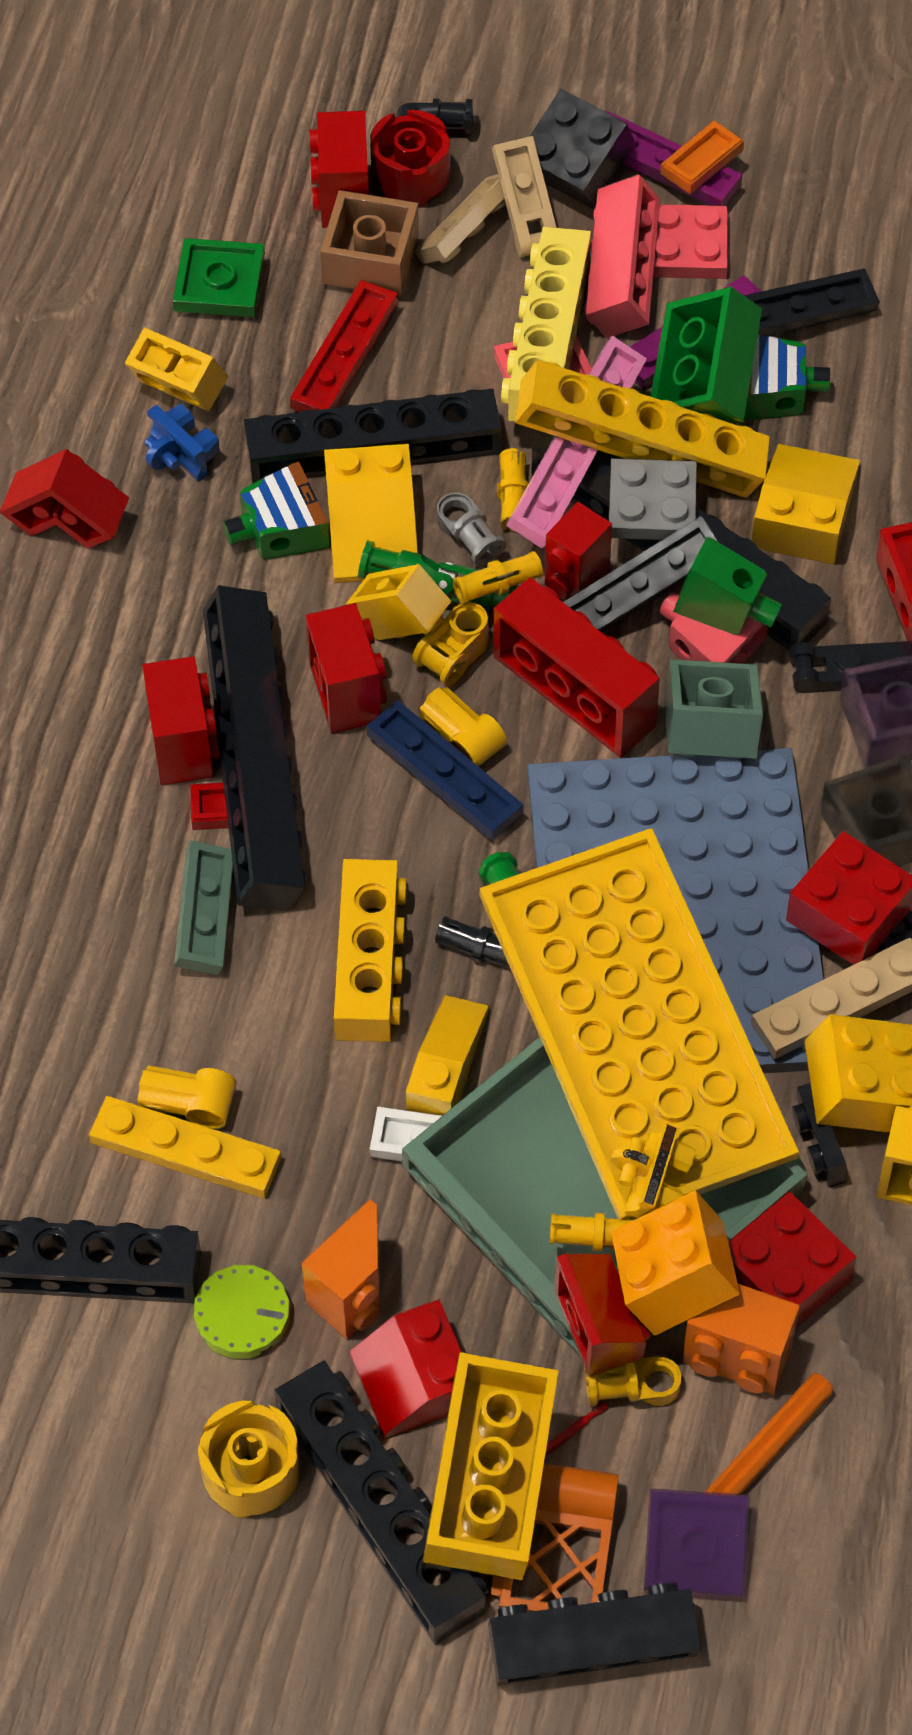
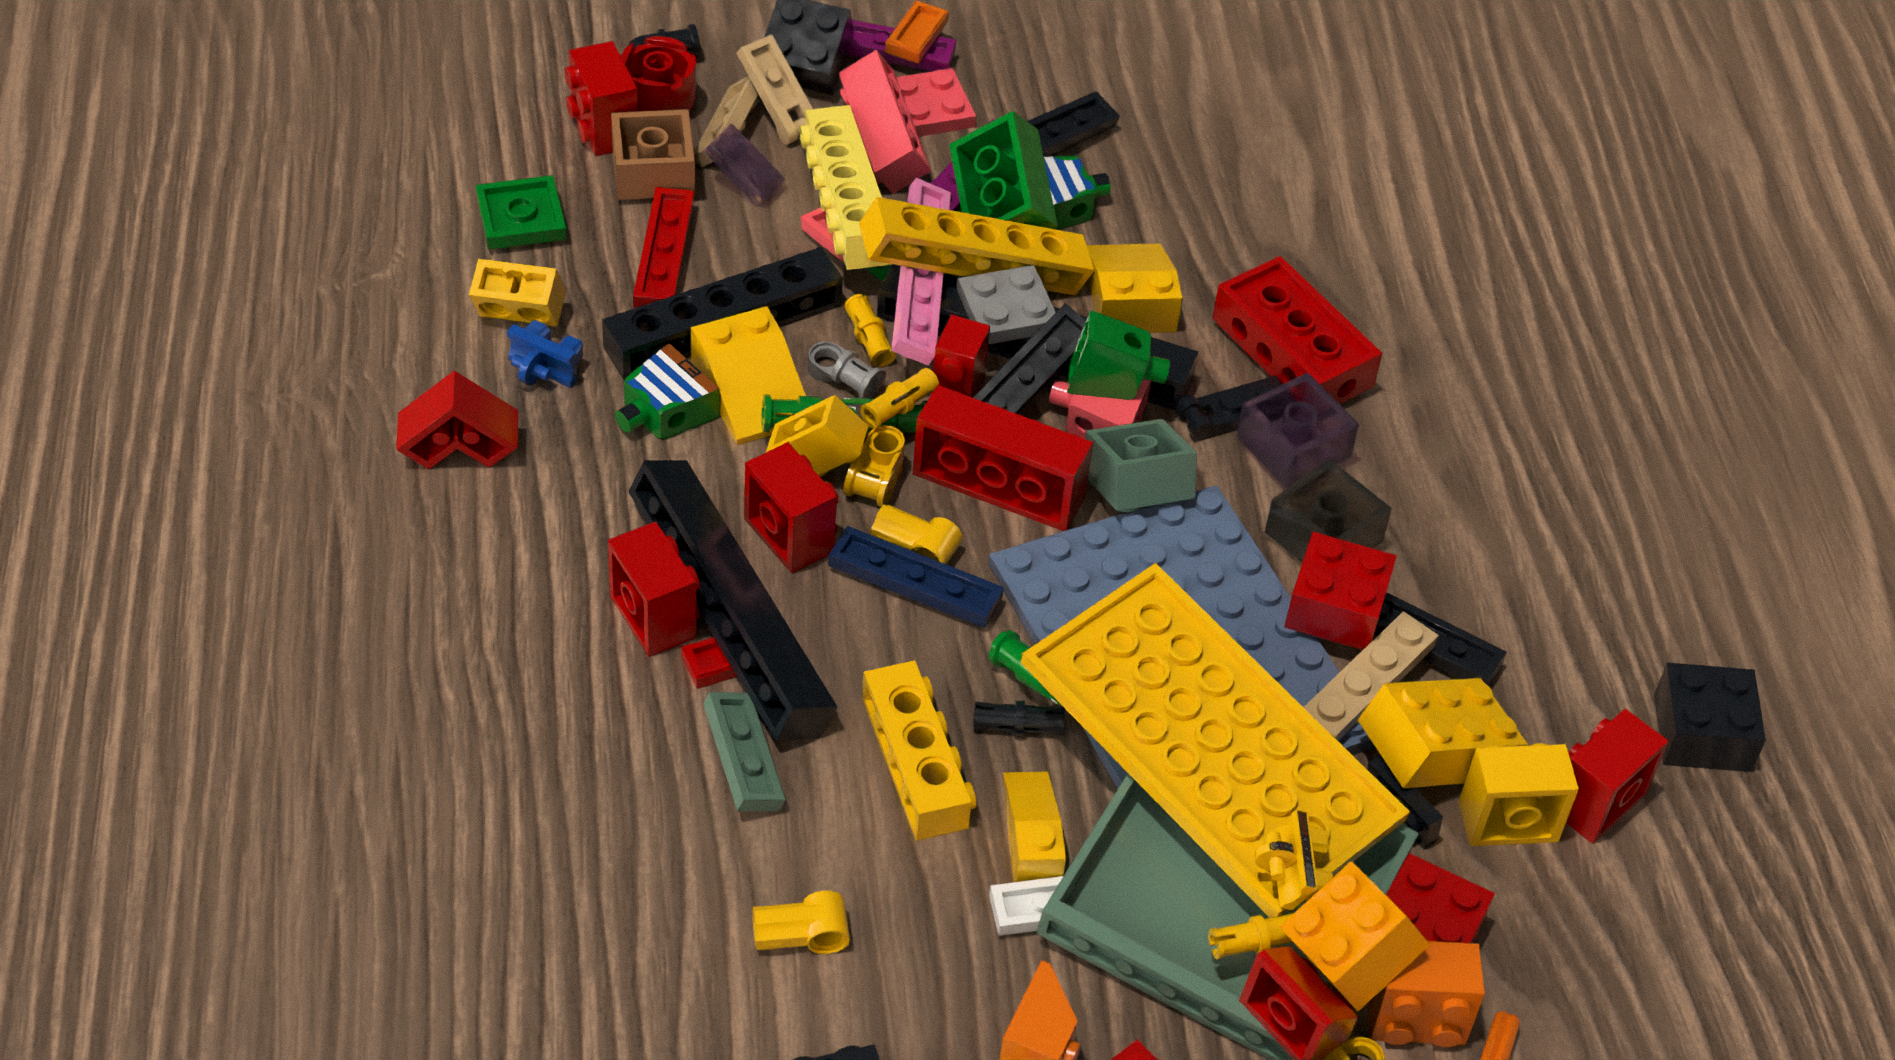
camera: 25 degrees left, 10 degrees down
(185, 1147) = (816, 975): yellow plate -> none
(458, 274) = (744, 164): none -> plate

